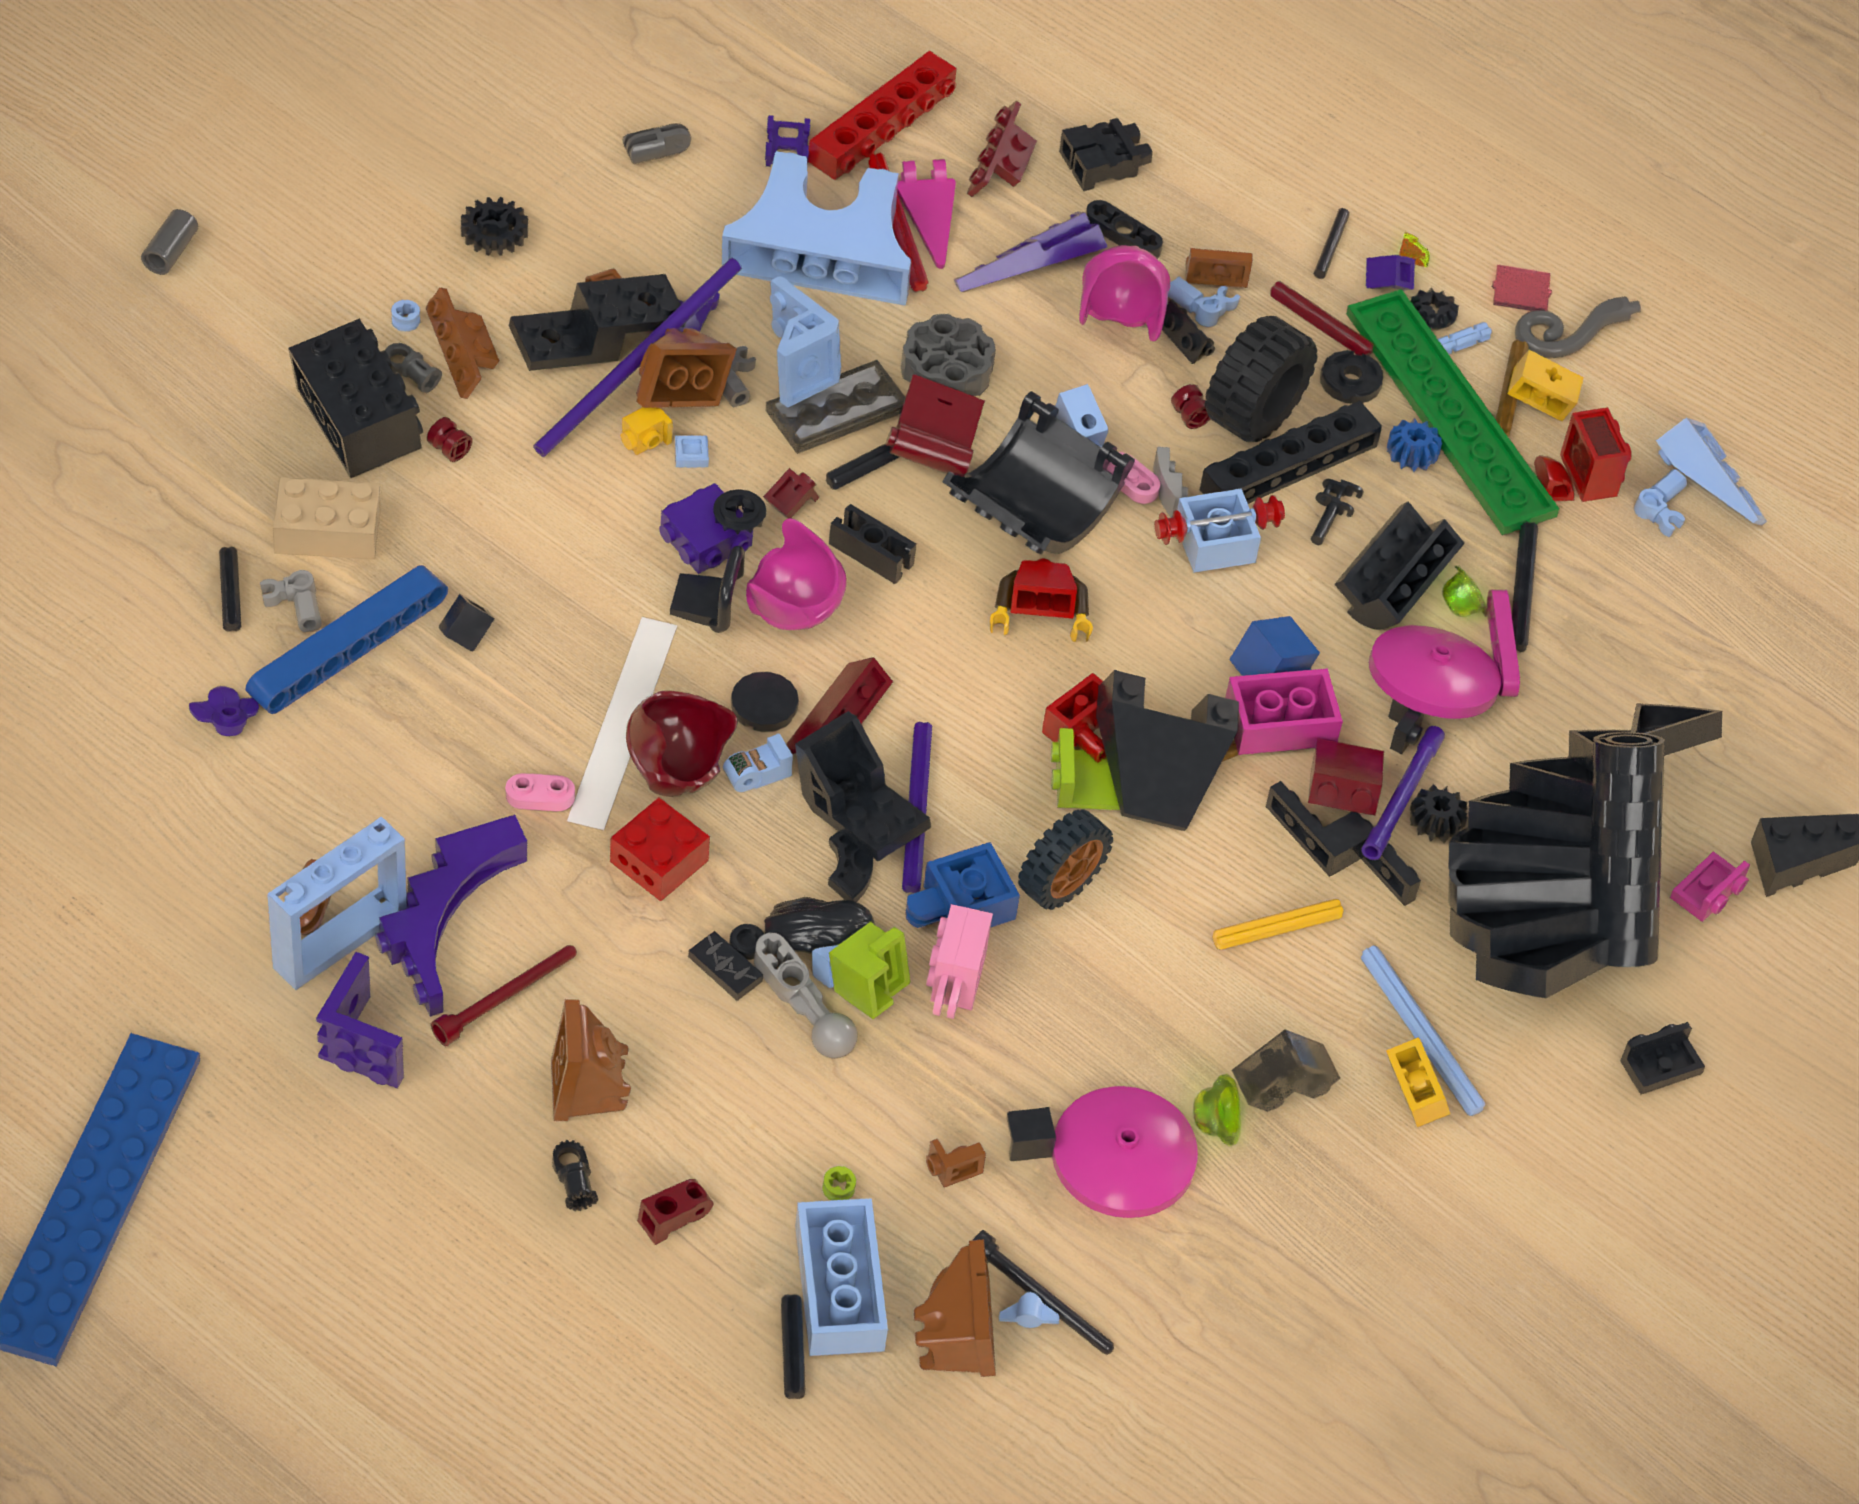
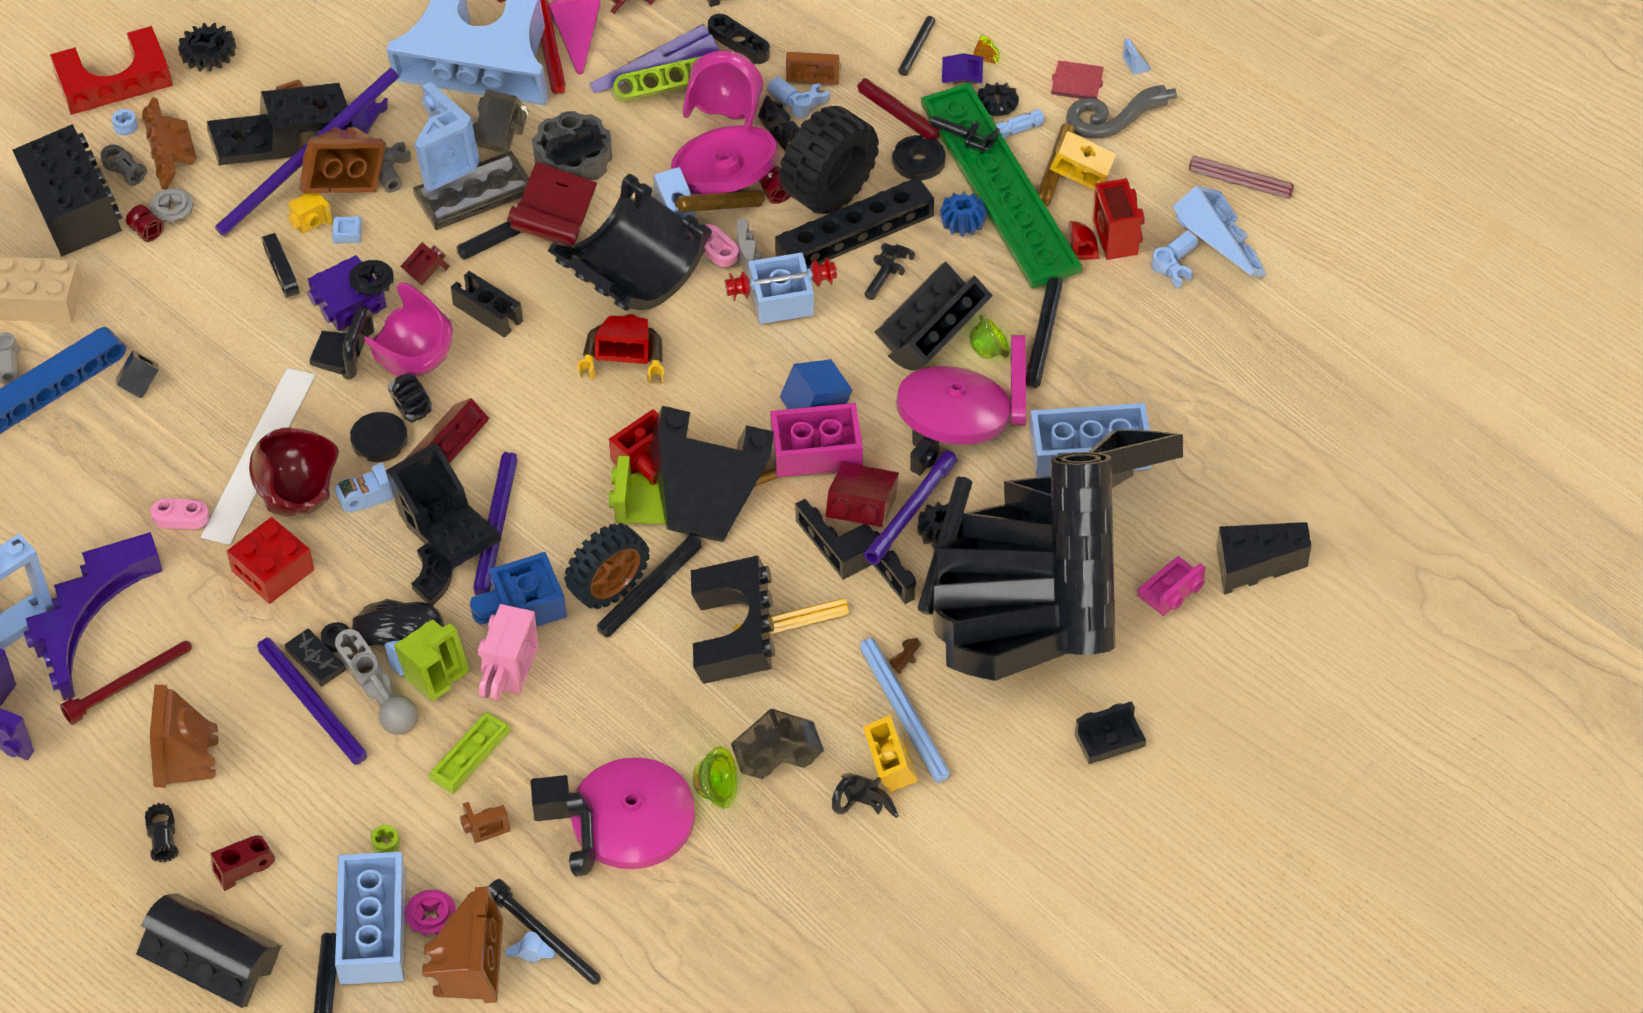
camera: 10 degrees right, 0 degrees up
(356, 277) = (88, 91): none -> red arch
(486, 410) = (161, 201): none -> light grey gear
(619, 493) = (280, 265): none -> black beam
(649, 1314) = (206, 948): none -> black brick
(729, 1018) = (312, 701): none -> dark purple axle
(800, 655) = (410, 397): none -> black gear
(862, 323) = (498, 120): none -> clear smoke brick
(902, 1256) = (430, 901): none -> dark pink gear
(923, 1080) = (469, 752): none -> lime tile
(957, 356) = (571, 147): none -> black hinge
(1043, 276) = (662, 79): none -> lime beam
(1074, 1207) = (582, 861): none -> black bar
(1107, 882) = (649, 586): none -> black axle
(1134, 374) = (726, 159): none -> dark pink dish
(1134, 425) = (719, 201): none -> pearl gold axle
(1237, 957) = (750, 645): none -> black arch
(1392, 1126) = (864, 791): none -> black piece
(1406, 348) = (968, 133): none -> black piece
(1411, 972) = (900, 660): none -> reddish brown piece
(1452, 824) = (947, 533): none -> black axle
(1585, 264) = (1134, 58): none -> light blue slope
(1585, 704) = (1079, 430): none -> light blue brick
(1725, 407) = (1241, 177): none -> axle

